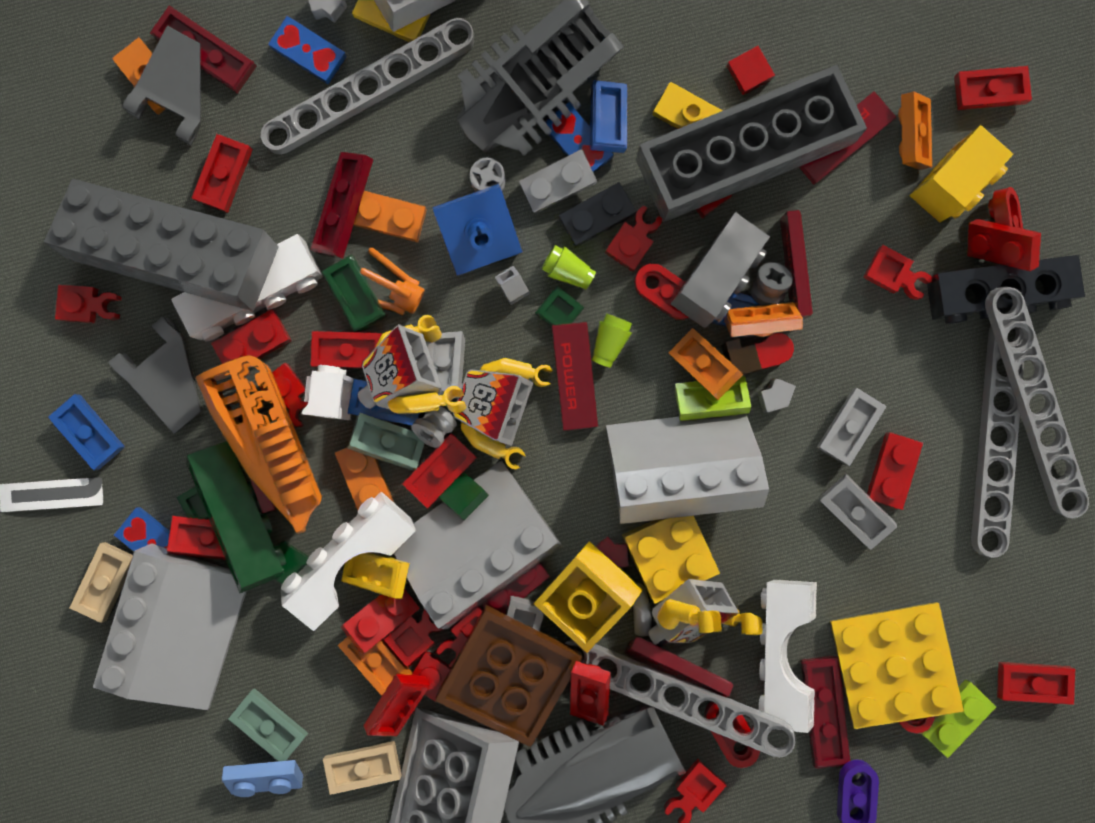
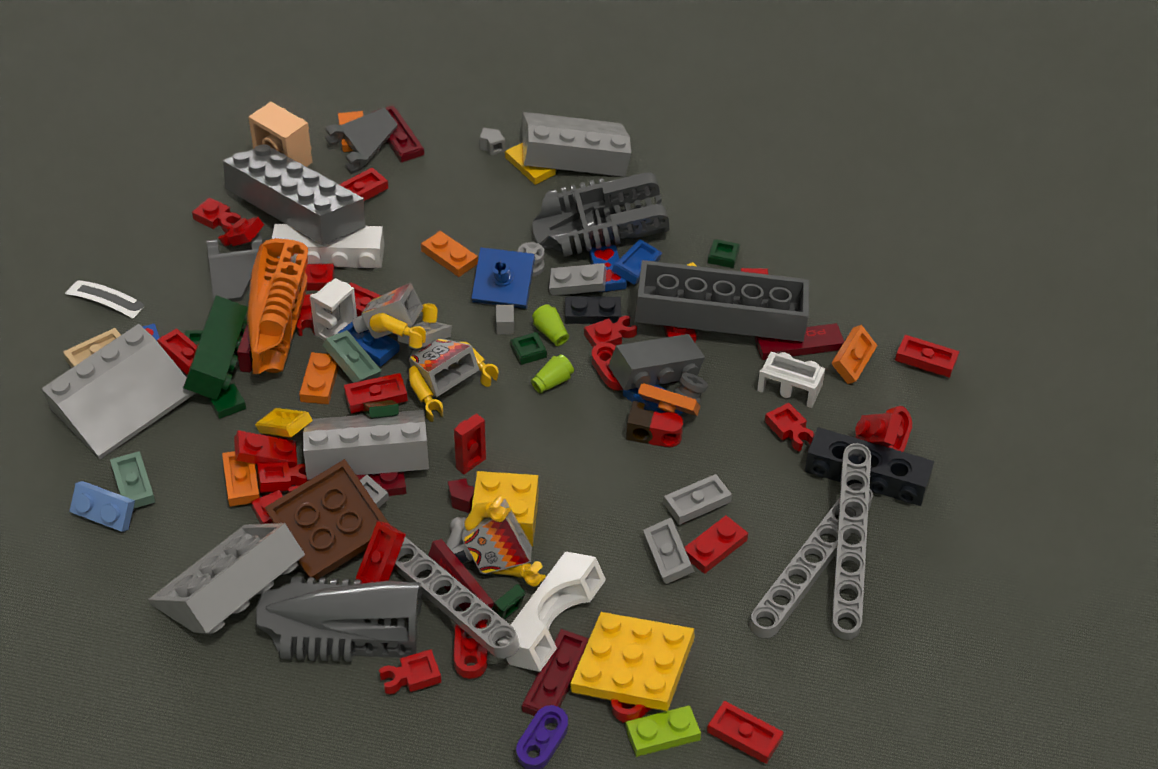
camera: 25 degrees right, 40 degrees down
(80, 153) = (282, 132): none -> light nougat brick
(86, 432) = (159, 273): blue plate -> none
(140, 326) = (241, 232): none -> red plate
(307, 50) = (462, 158): blue tile -> none
(342, 204) = (422, 233): dark red tile -> none
(350, 86) = (476, 183): light grey beam -> none
(354, 294) = (393, 273): dark green tile -> none
(362, 767) = (176, 536): tan plate -> none
(376, 528) = (235, 409): white arch -> none
(396, 705) = (234, 502): red plate -> none
(404, 294) = (427, 289): orange plant -> none
(434, 427) = (391, 360): light grey wheel -> none
(575, 375) = (511, 383): dark red tile -> none
(588, 597) = (424, 497): yellow brick -> none
(589, 500) = (470, 443): none -> red plate
(685, 467) = (548, 456): light grey slope -> none
(693, 43) = (723, 253): none -> dark green tile
(698, 403) = (601, 435): lime plate -> none
(705, 363) = (611, 410): orange plate -> none
(740, 667) = (509, 602): none -> dark green tile
(776, 396) = (652, 458): light grey piece -> none
(796, 261) = (716, 389): dark red tile -> none
(866, 202) = (792, 373): none -> white window
(962, 175) = (868, 380): yellow brick -> none

